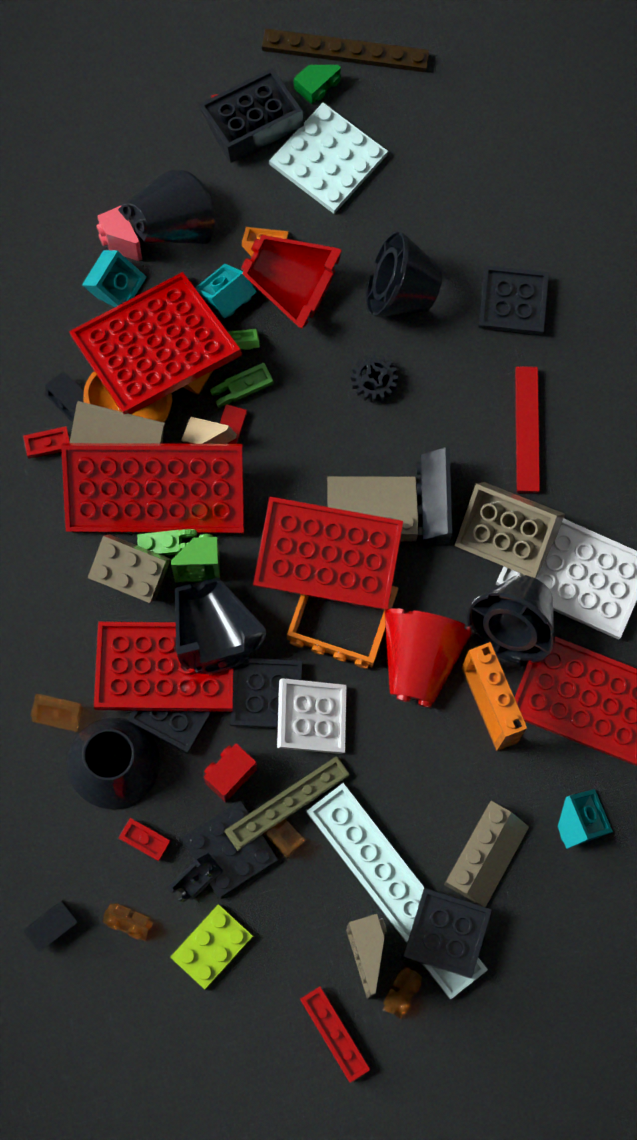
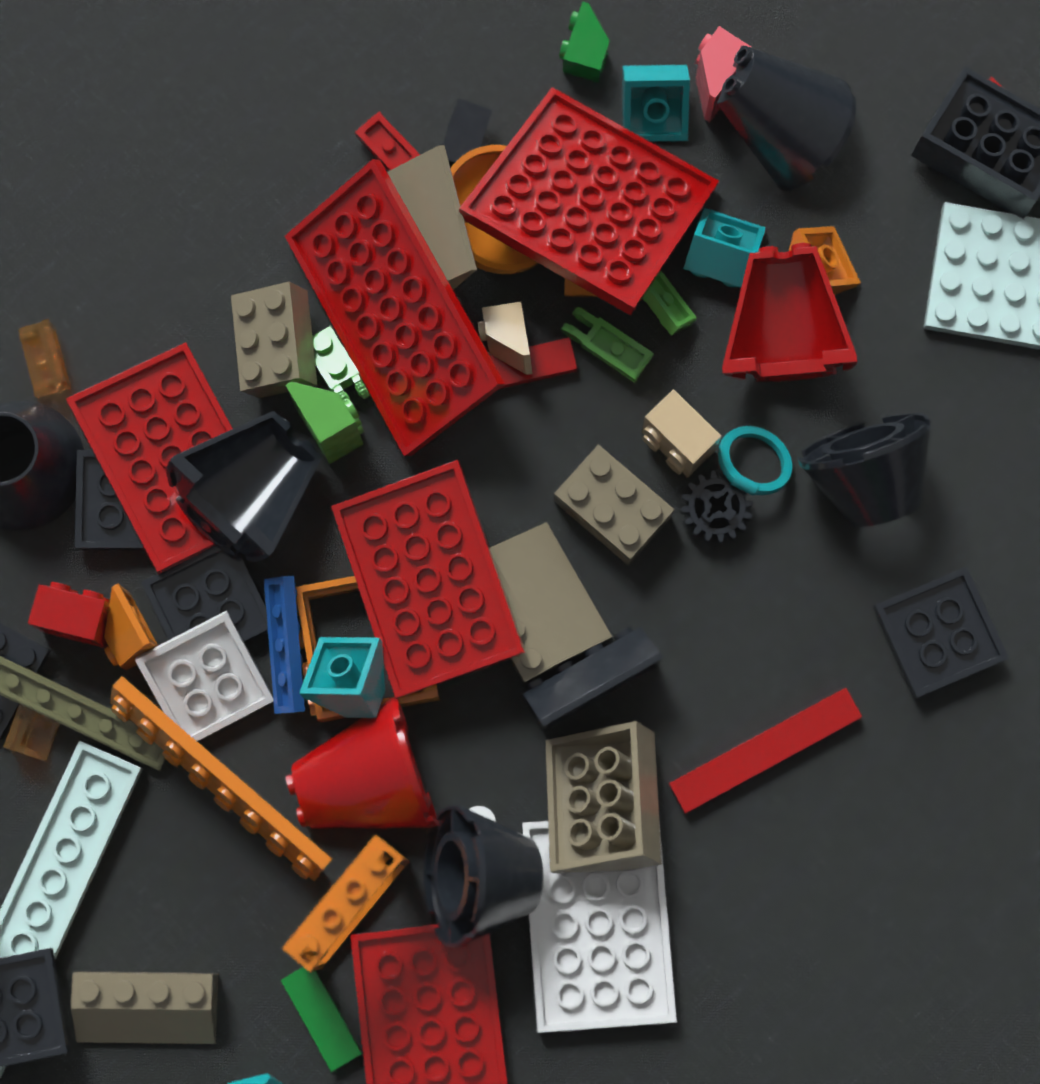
camera: 65 degrees right, 5 degrees up
(56, 298) = (588, 45): none -> green slope
(258, 744) = (126, 630): none -> orange slope
(318, 659) = (284, 644): none -> blue plate
(322, 372) = (679, 434): none -> tan brick
(340, 432) = (613, 504): none -> dark tan brick
(358, 629) = (346, 676): none -> teal slope
(363, 356) = (744, 483): none -> teal piece
(378, 736) = (209, 772): none -> orange plate
(545, 756) = (321, 1017): none -> green tile

